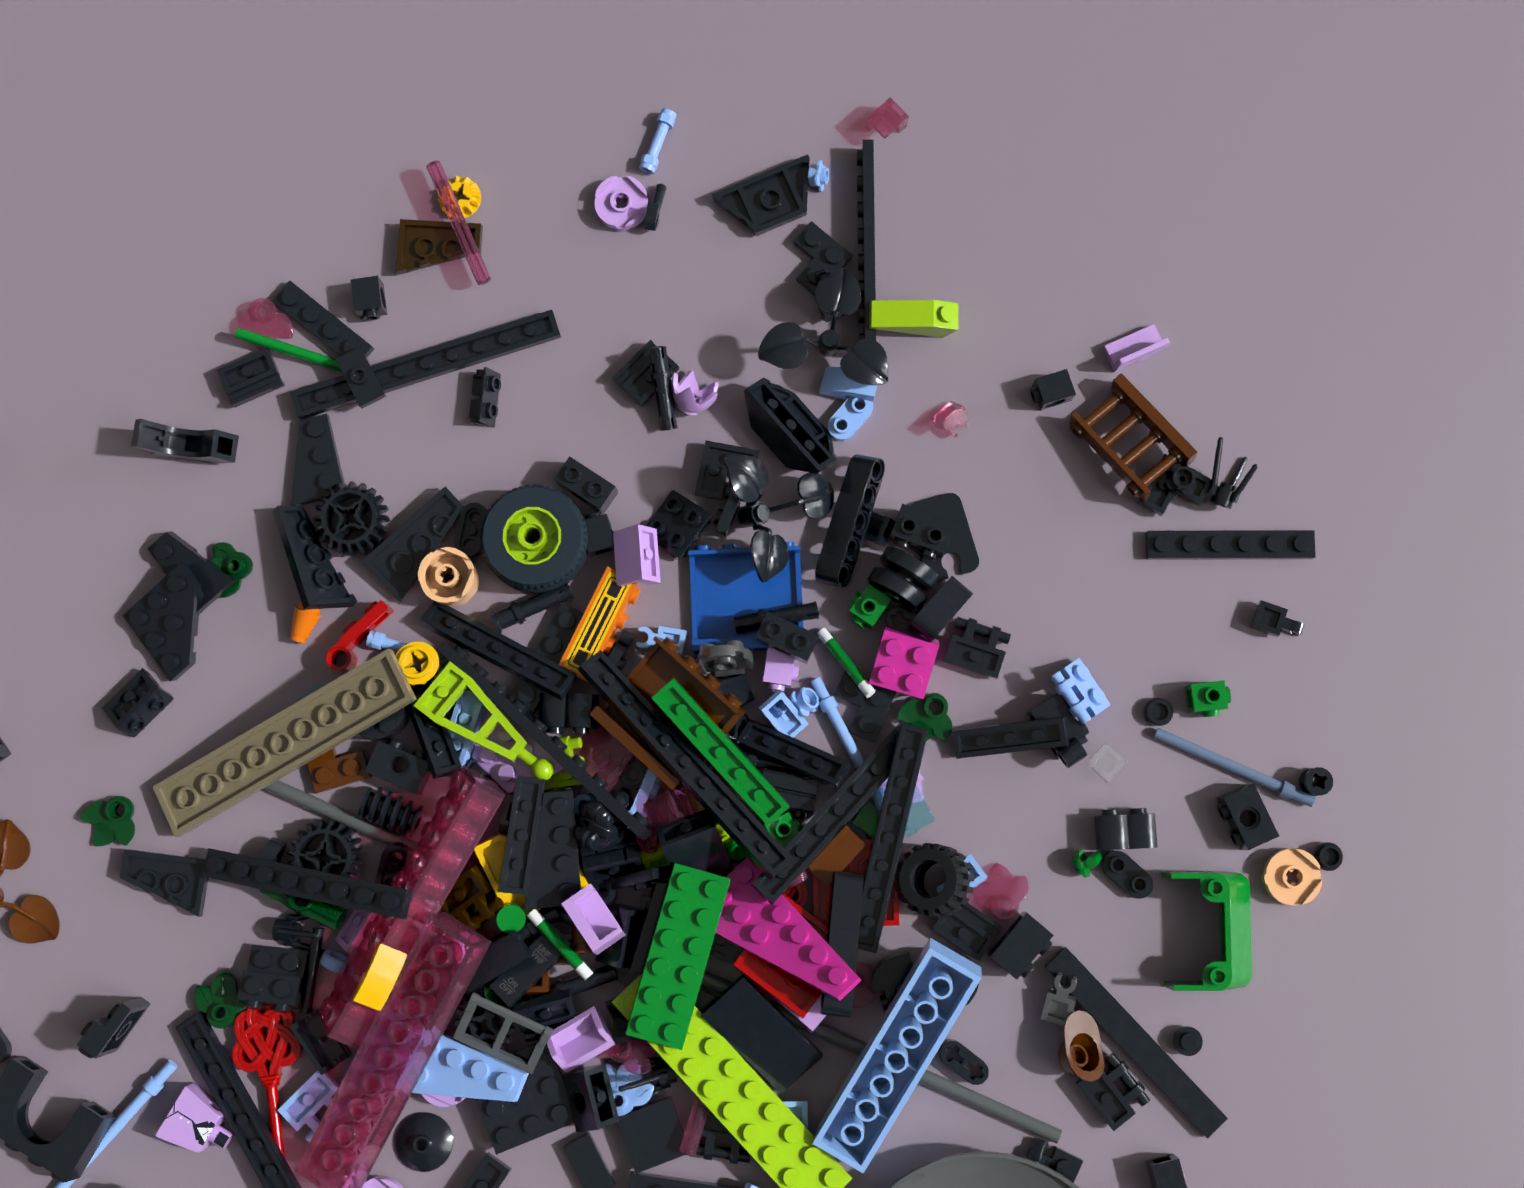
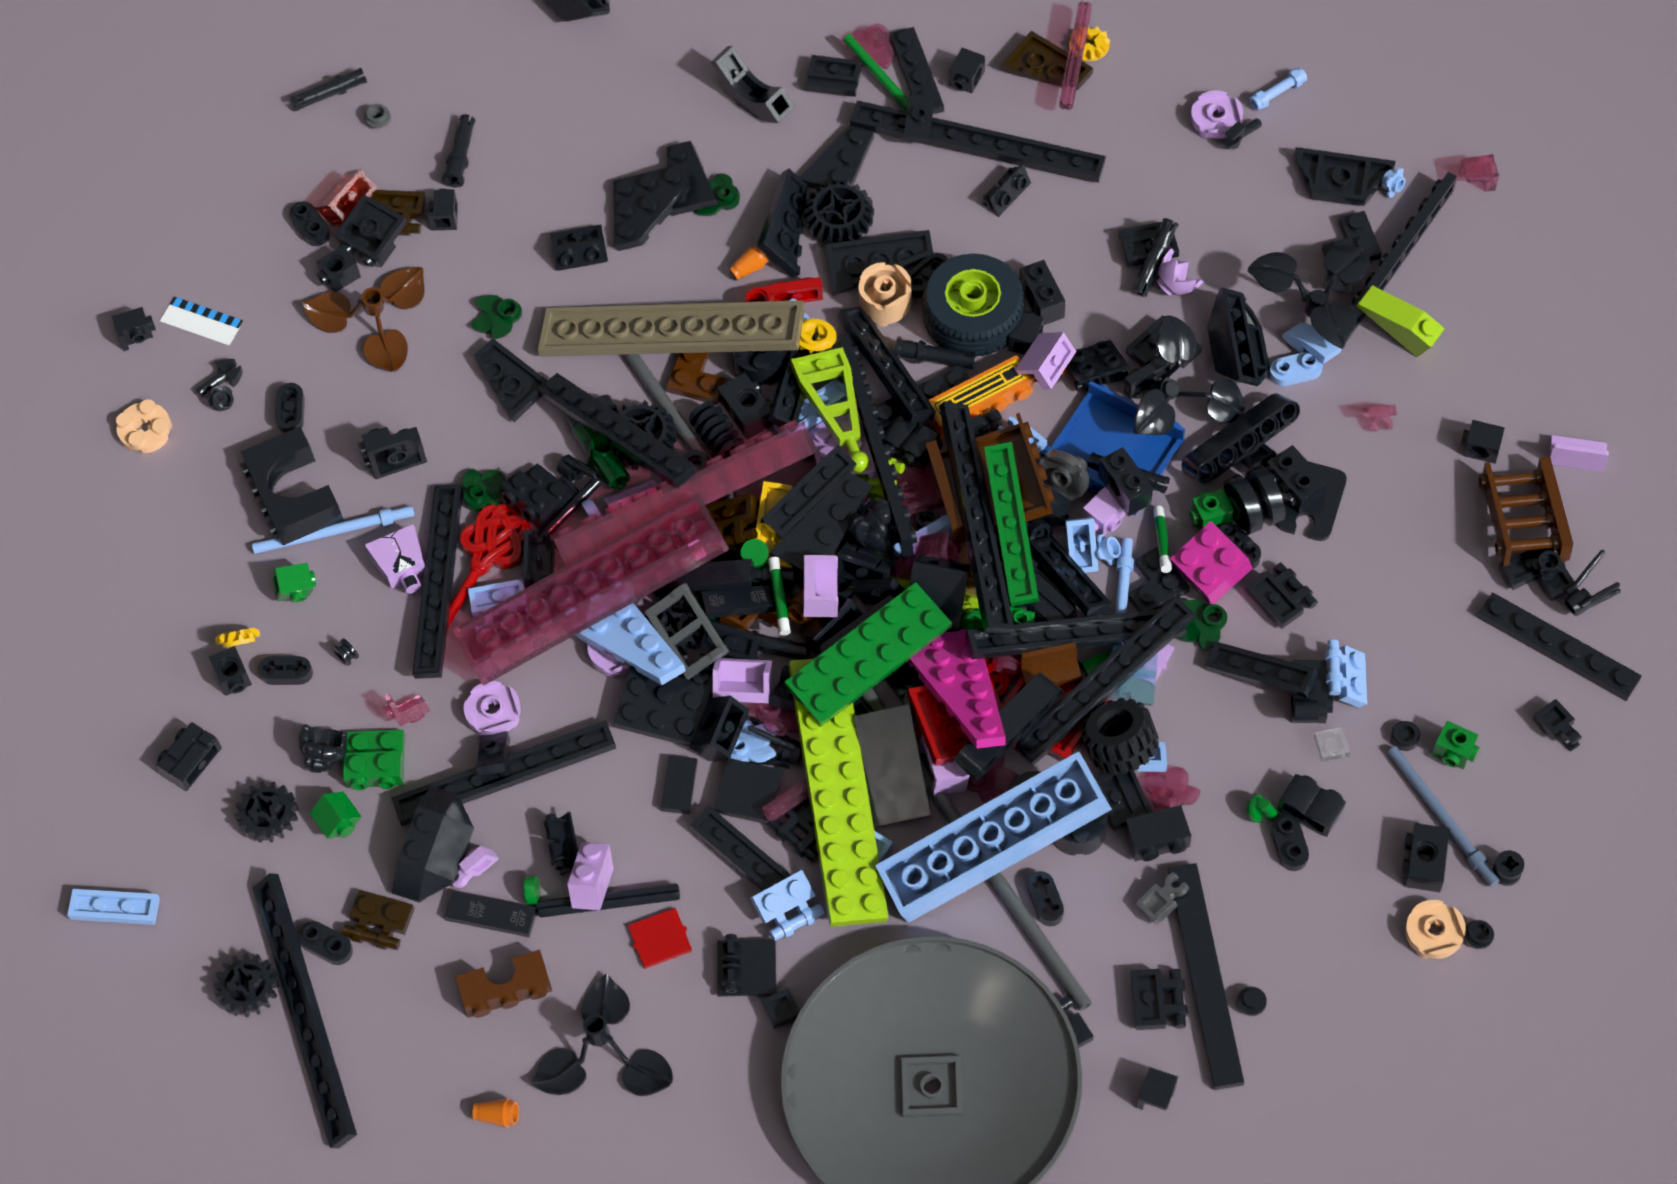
camera: 35 degrees right, 20 degrees down
(380, 977) = (625, 516): yellow slope -> none
(438, 1138) = (565, 698): black dish -> none
(941, 608) = (1271, 540): black beam -> none
(1081, 1049) = (1155, 941): reddish brown piece -> none
(1235, 962) = (1334, 960): green windscreen -> none

